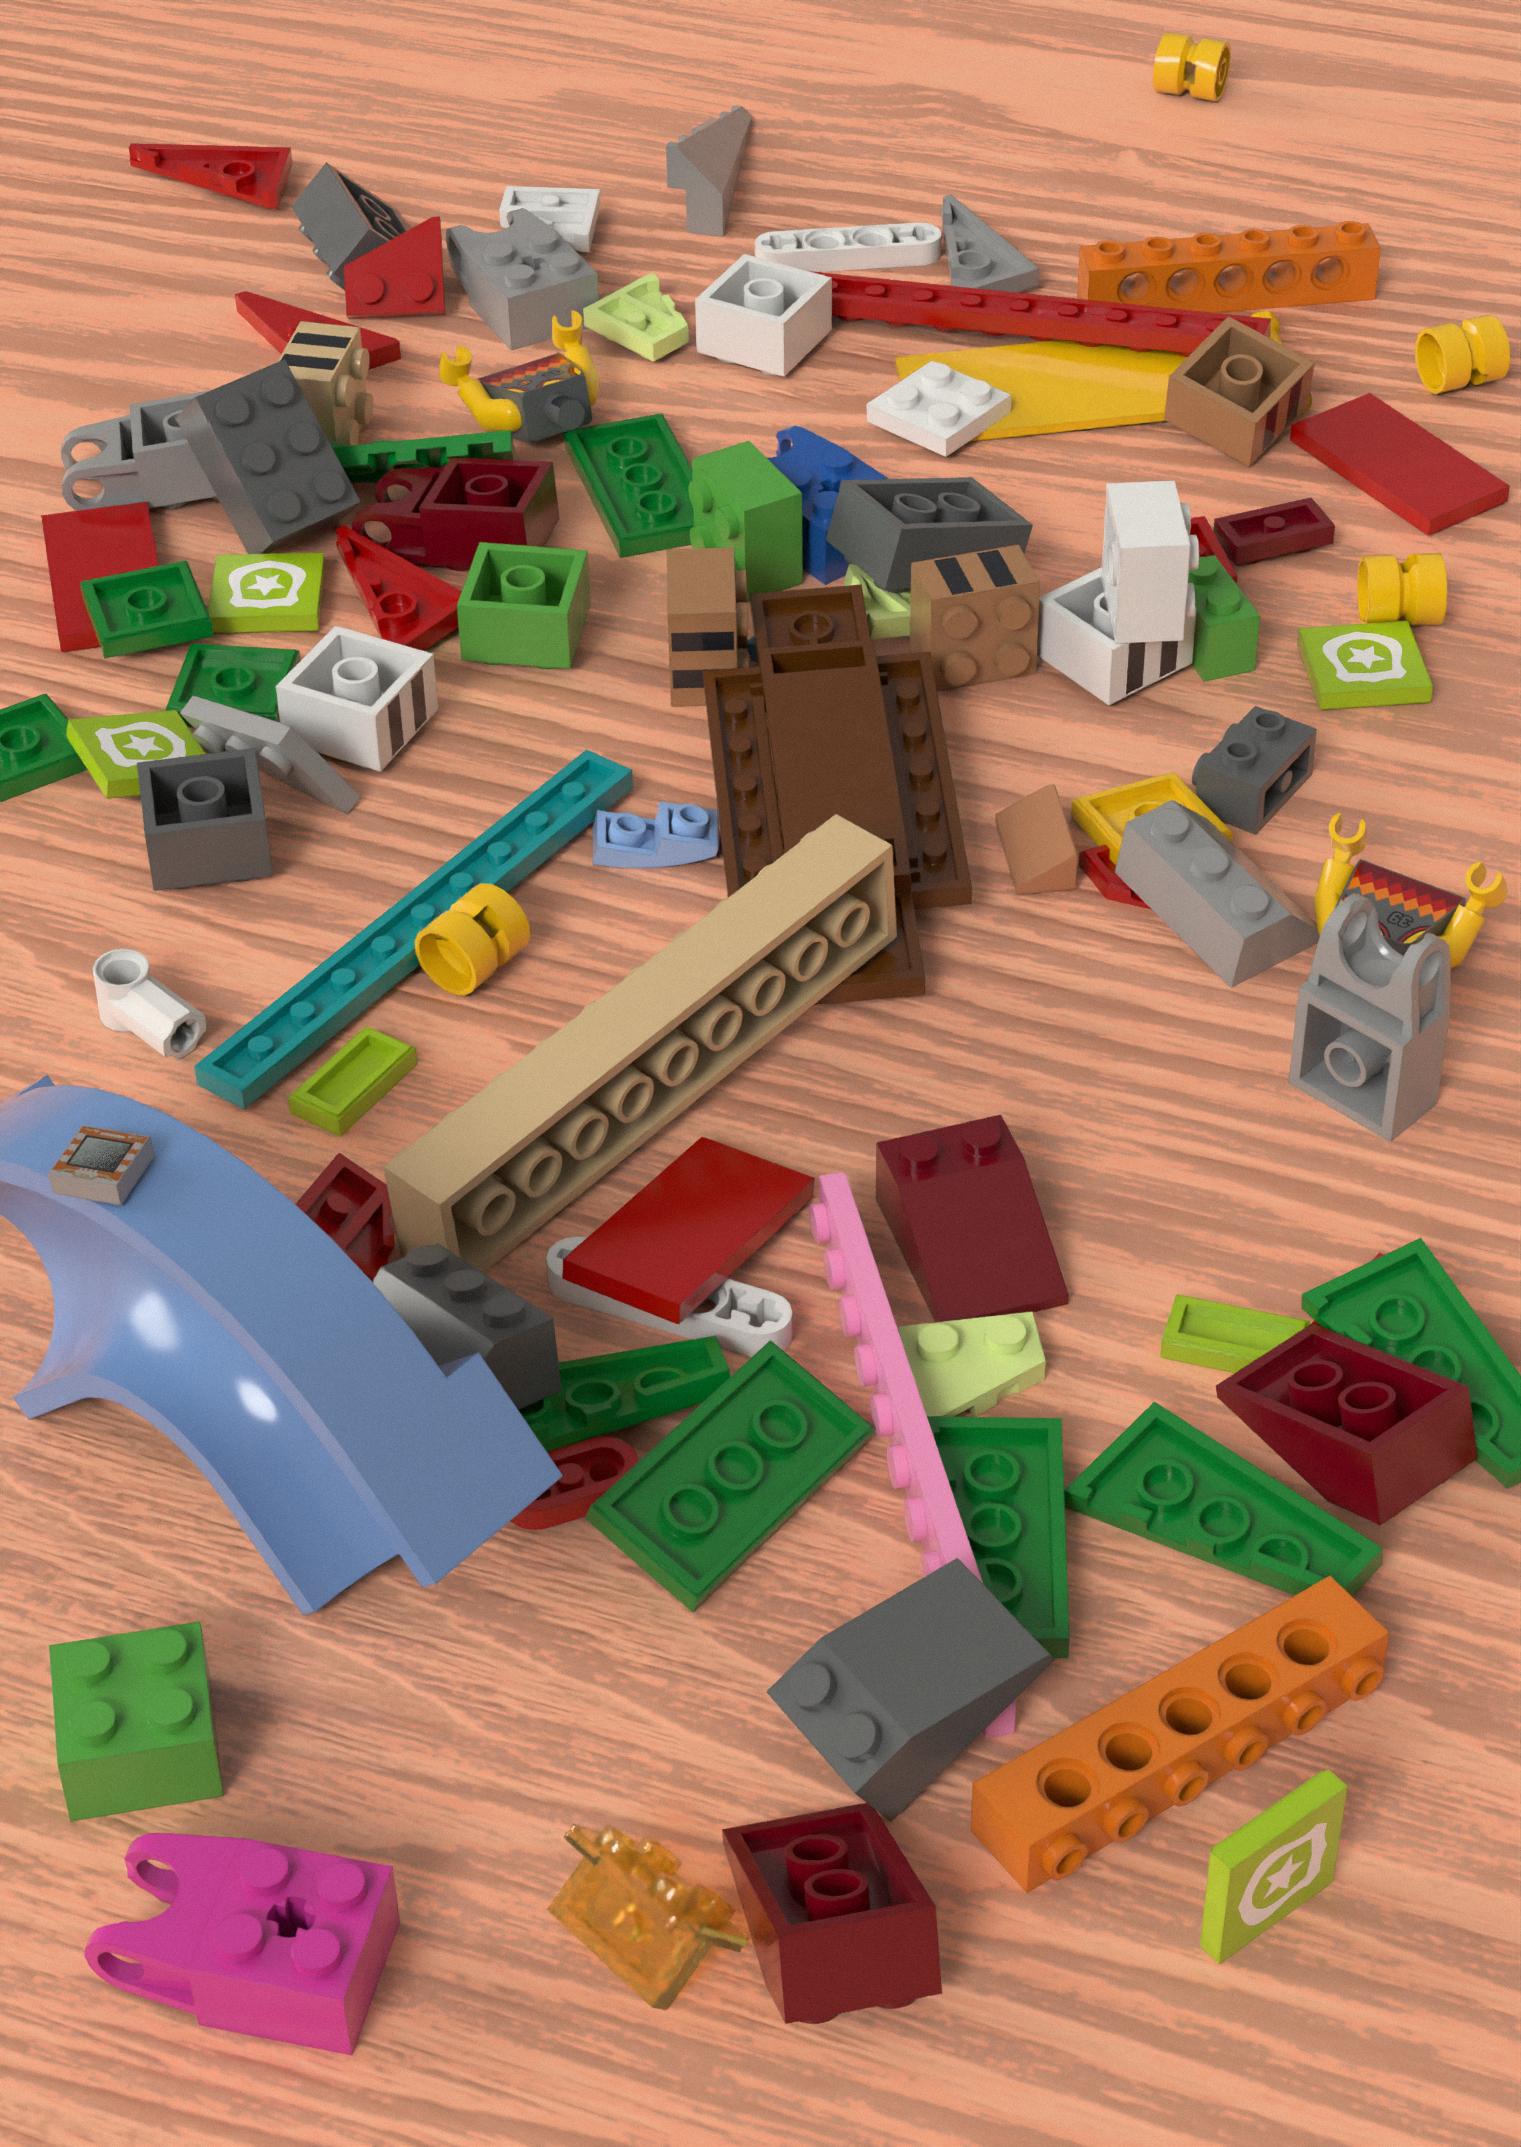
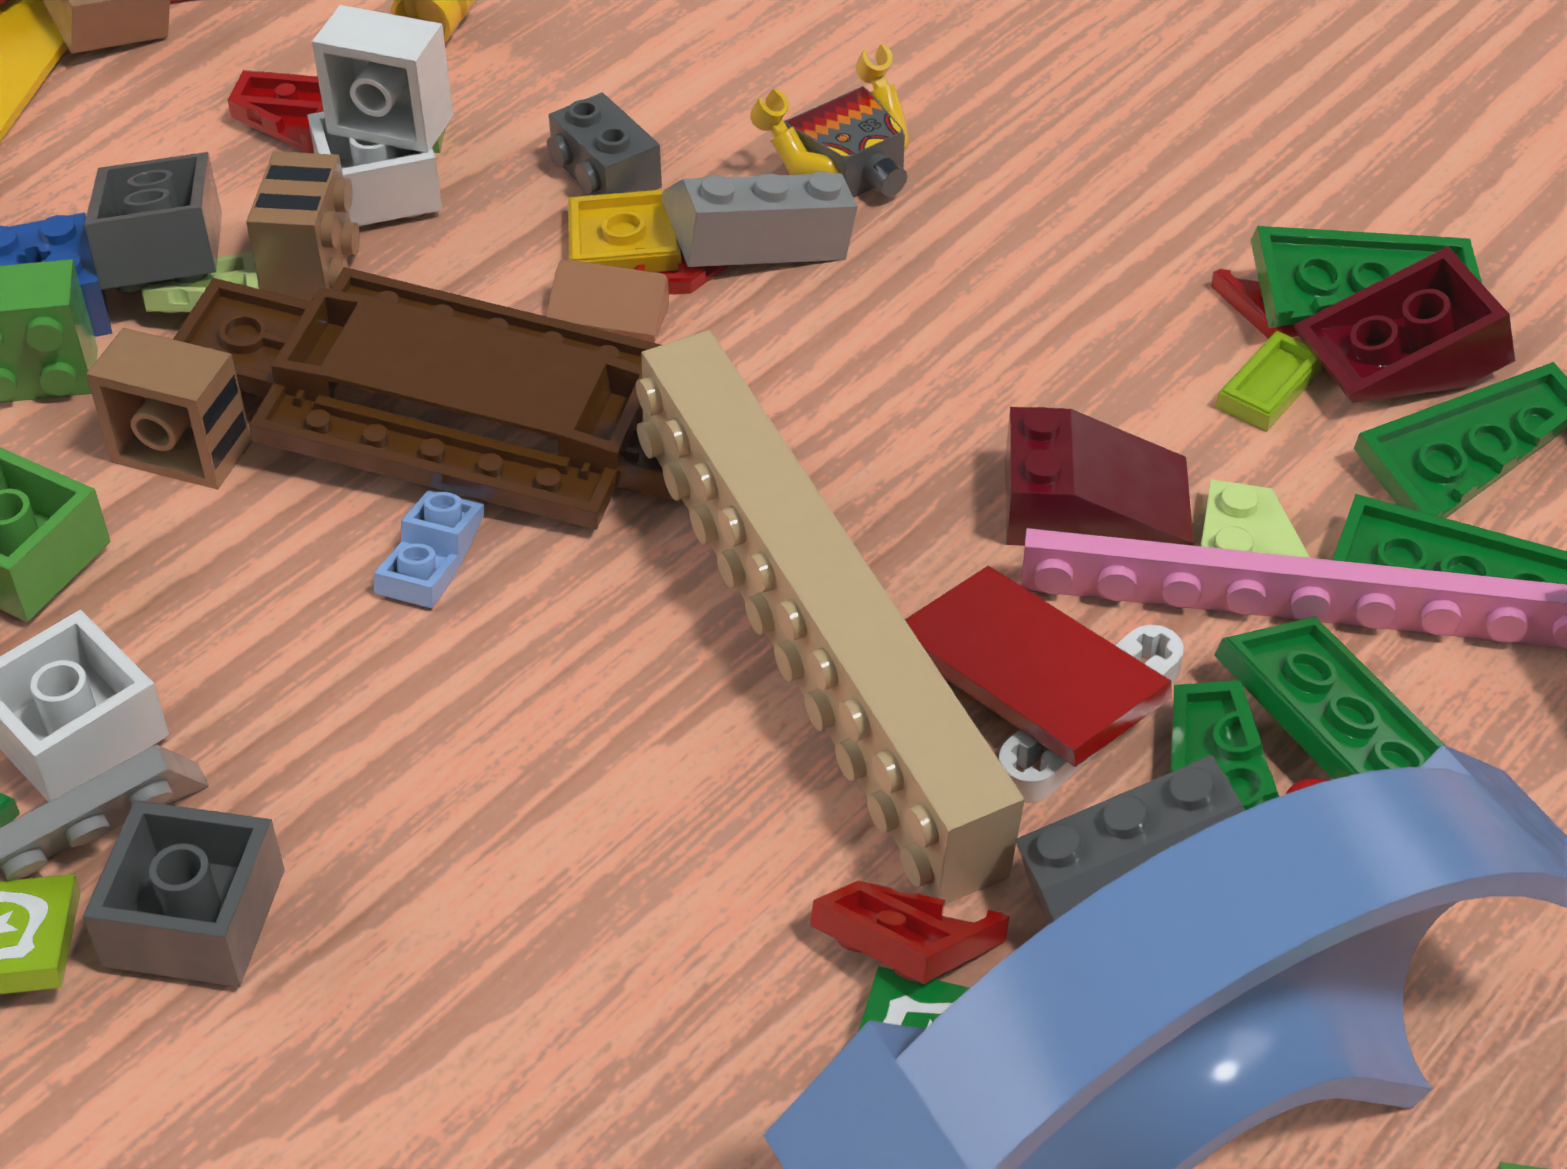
camera: 70 degrees left, 5 degrees up
(101, 1165) = (1255, 919): tile -> none
(141, 1004) = (462, 1029): white piece -> none
(352, 1081) = (663, 879): lime tile -> none
(385, 949) = (473, 777): teal plate -> none
(472, 939) = (527, 715): yellow wheel -> none
(1274, 531) = (286, 41): dark red plate -> none
(1364, 665) = (499, 59): lime tile -> none
(1372, 1022) = (1014, 164): light grey brick -> none

